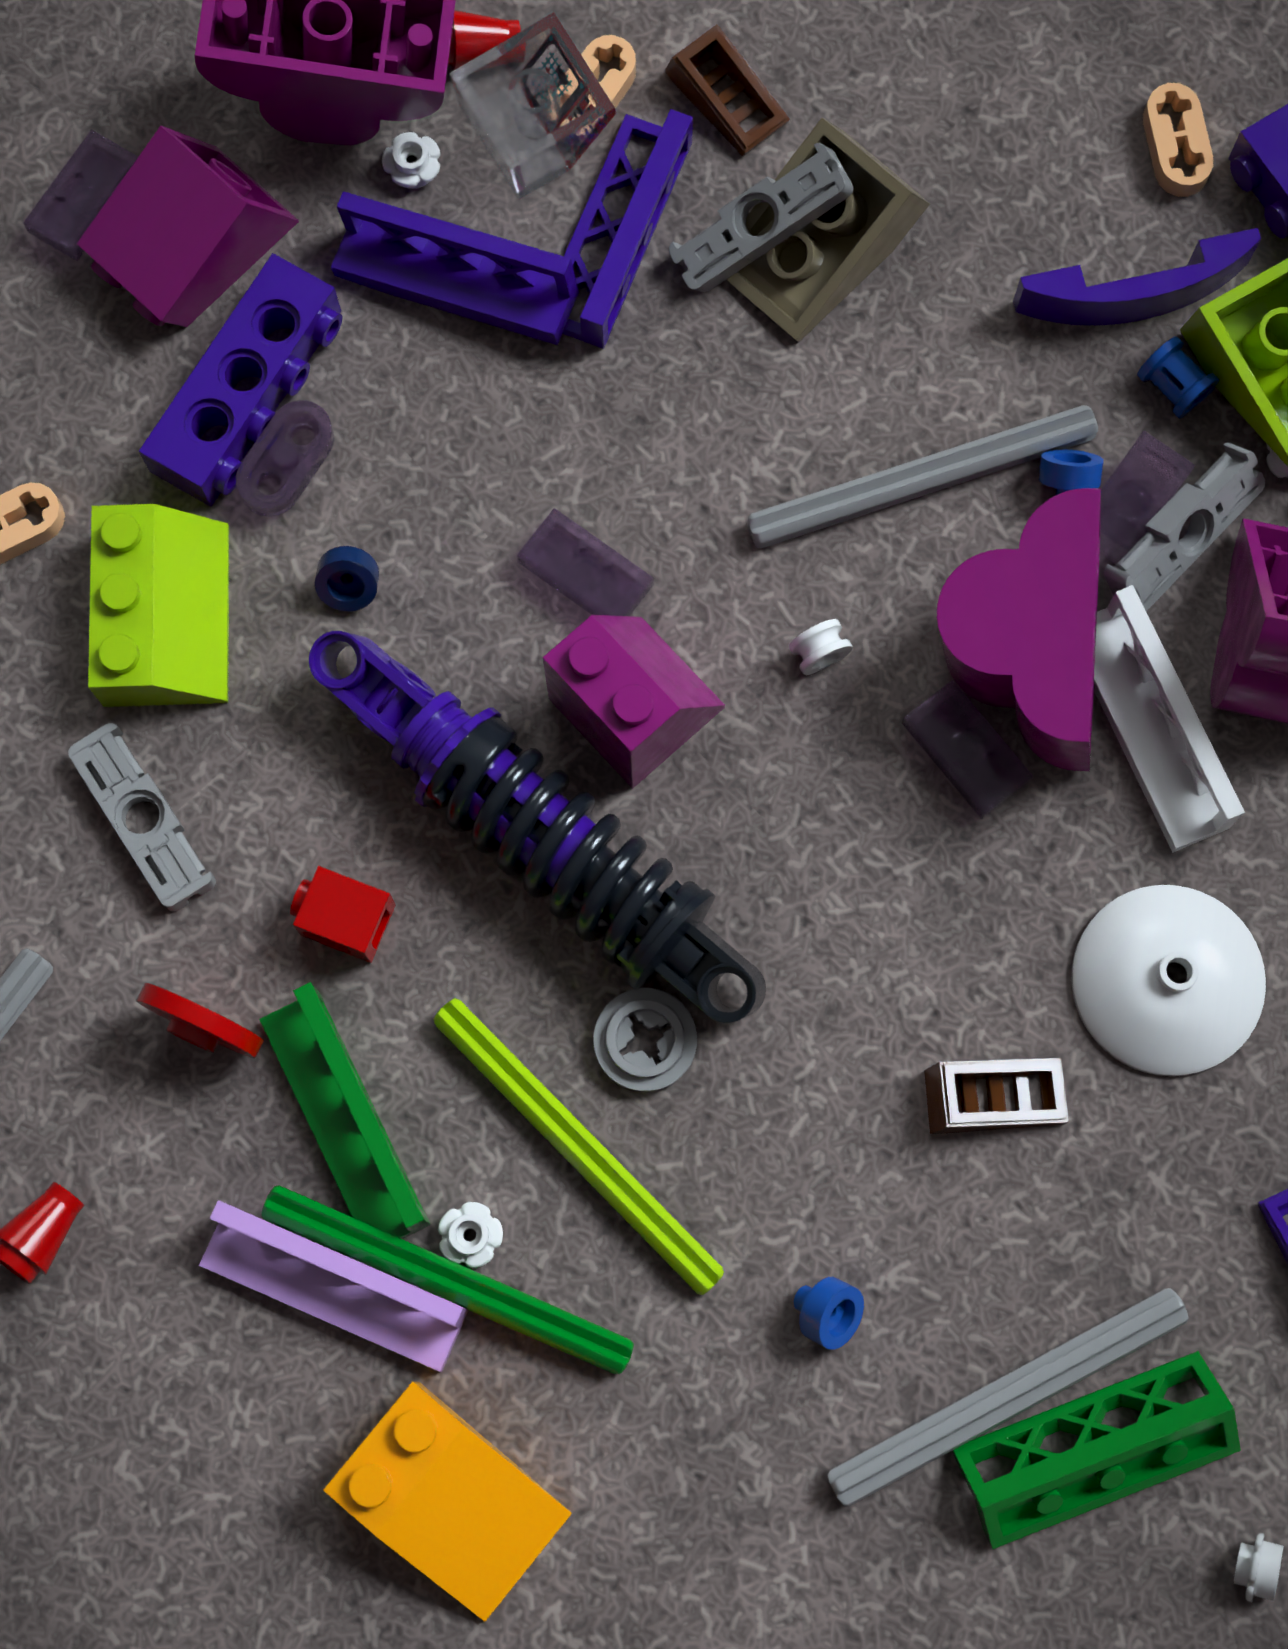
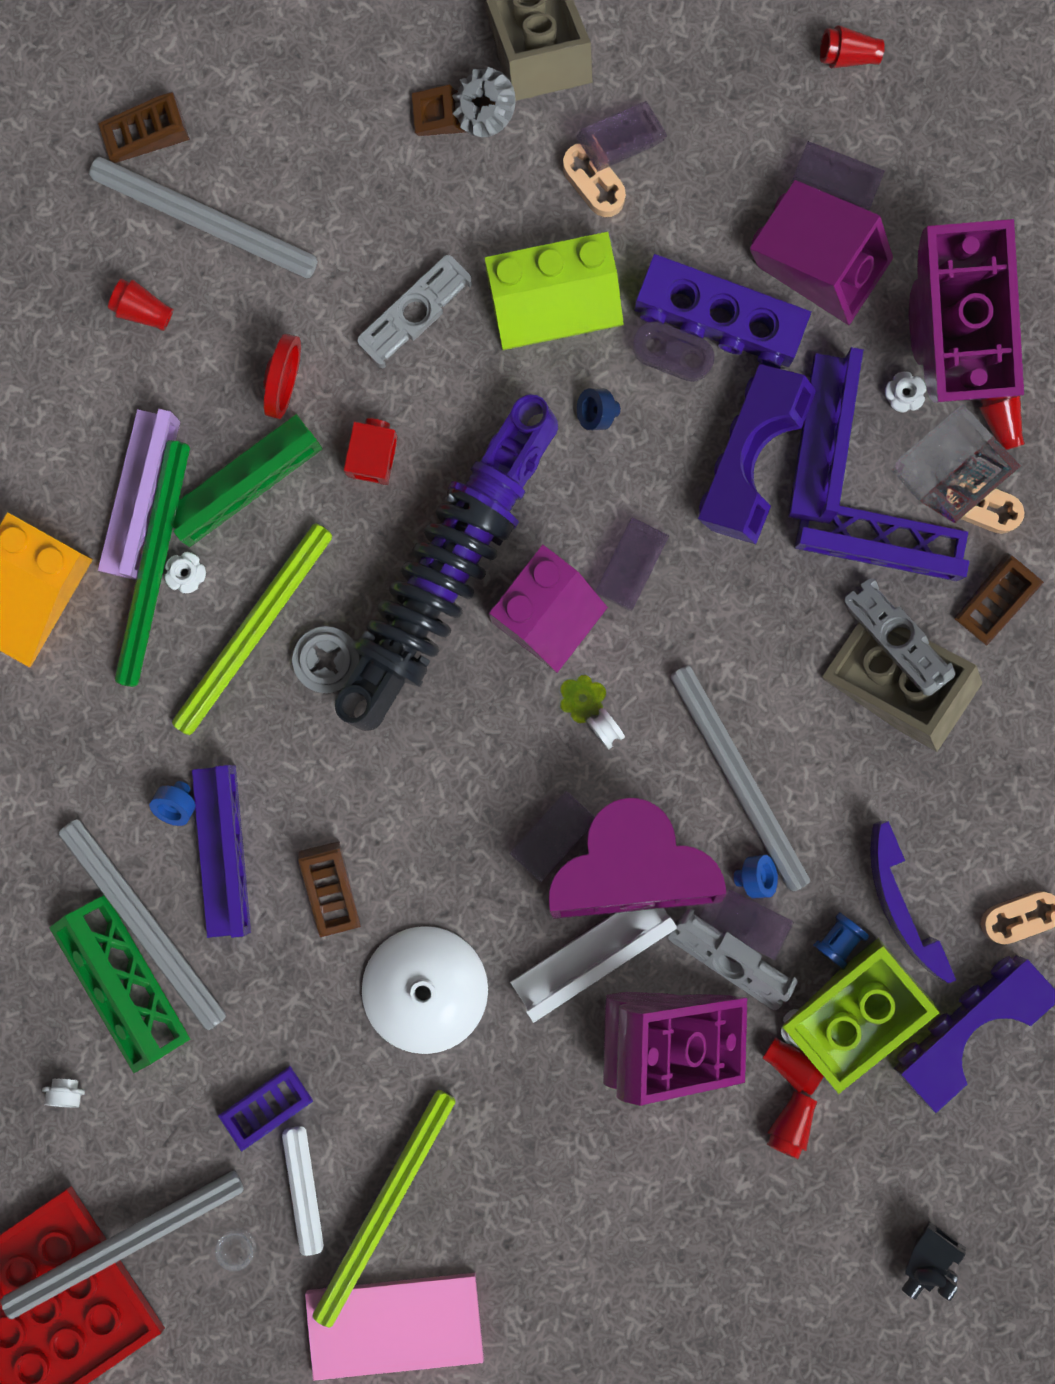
camera: 80 degrees right, 10 degrees up
(396, 330) = (772, 405): none -> dark purple arch
(757, 689) = (580, 710): none -> clear neon green plant
(915, 1249) = (221, 851): none -> dark purple fence

